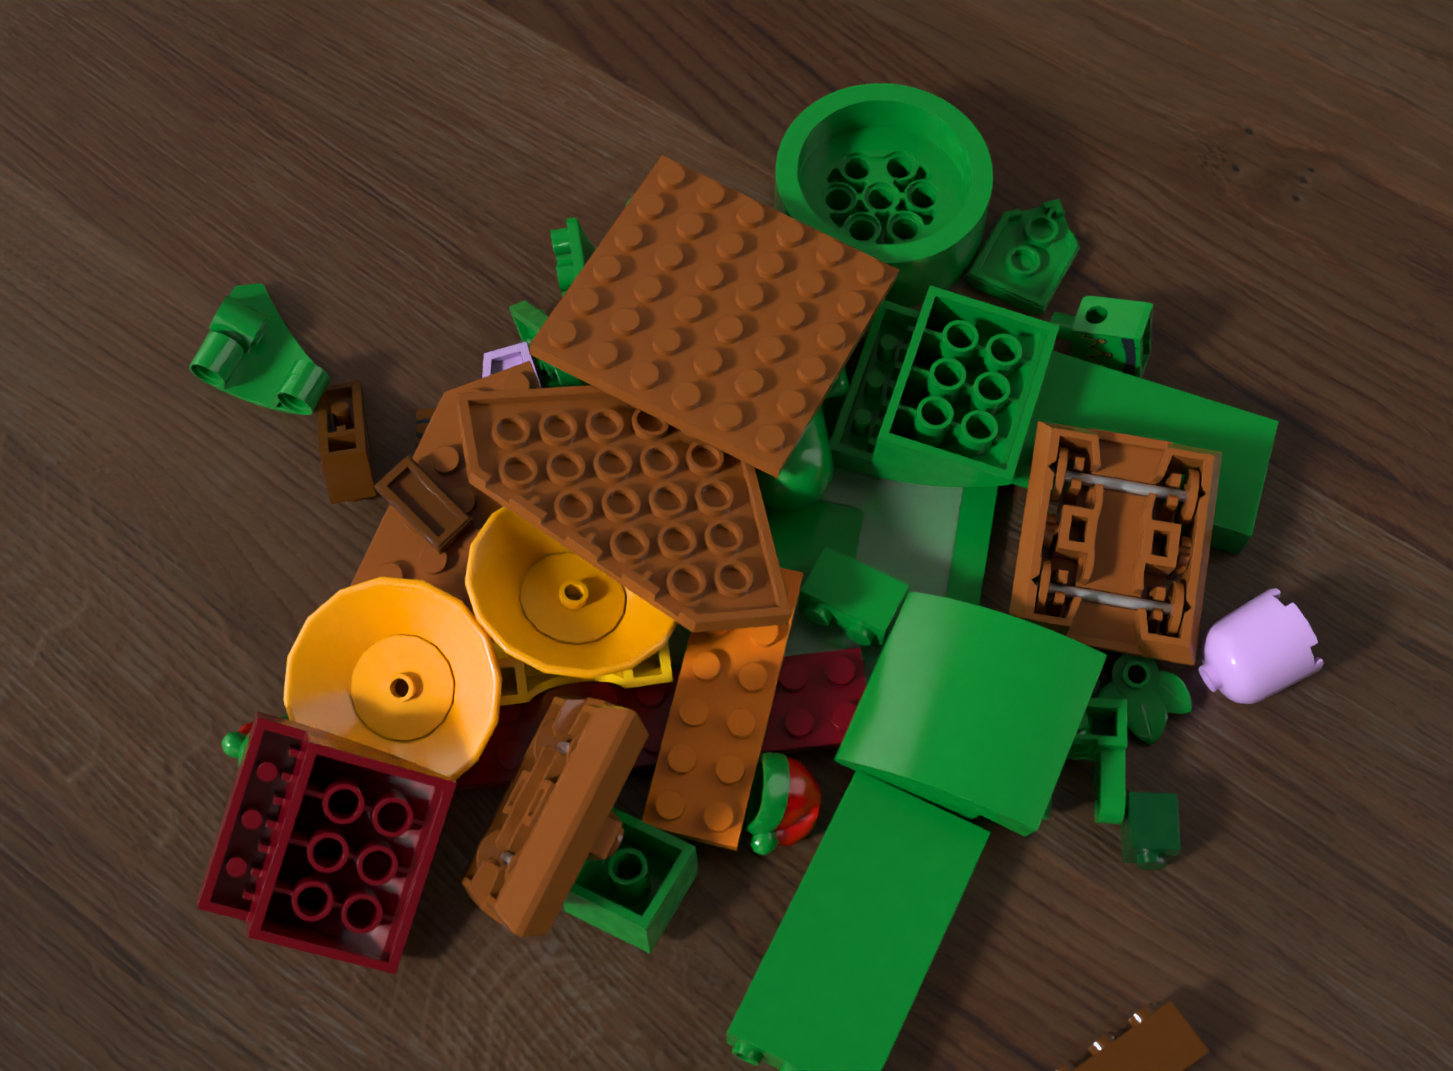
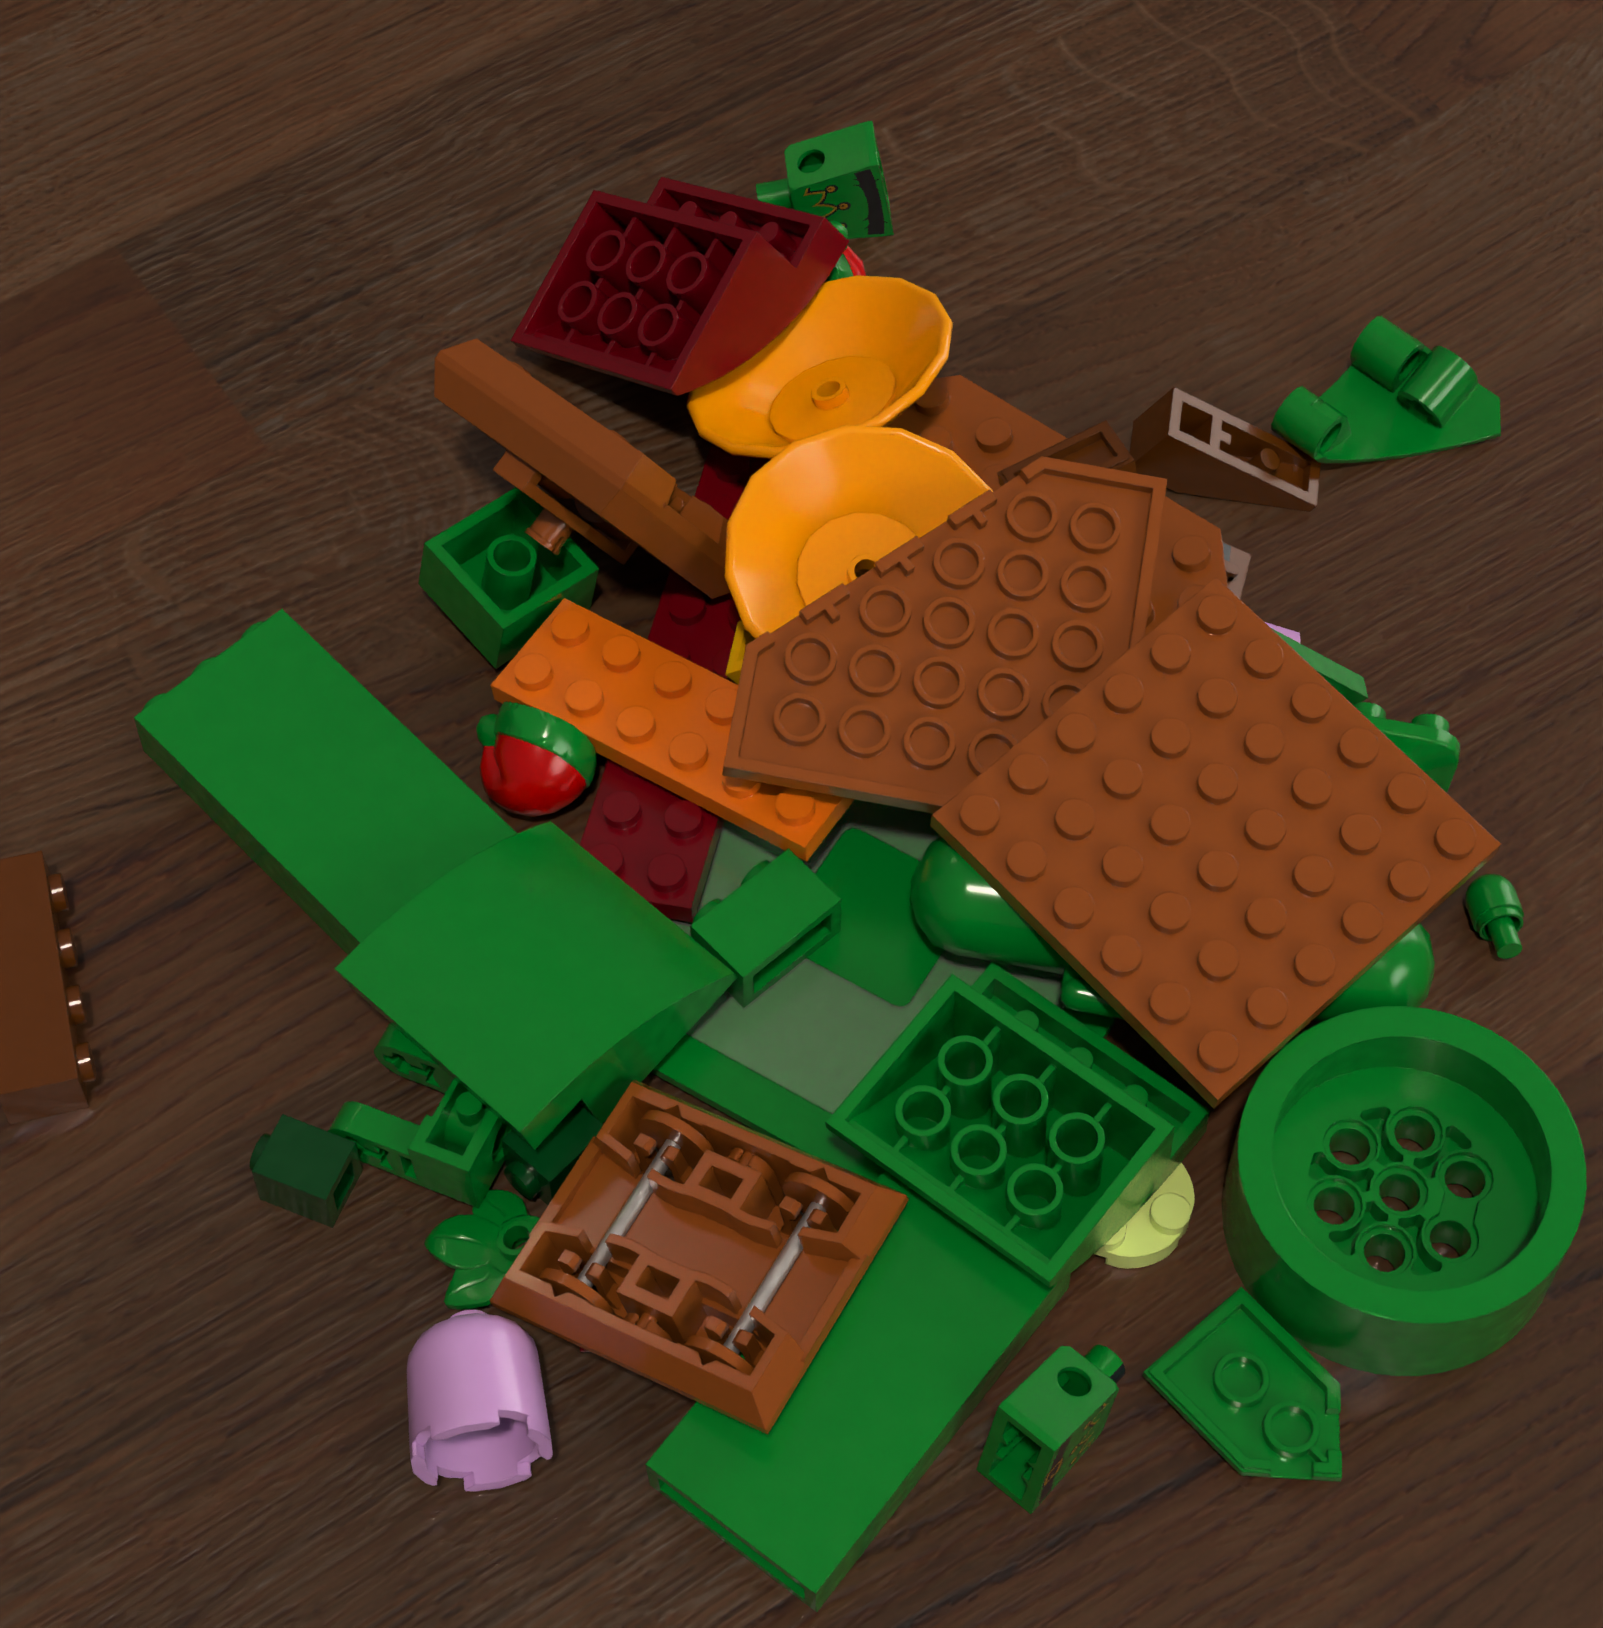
camera: 110 degrees right, 5 degrees down
(158, 762) = (836, 179): none -> green torso

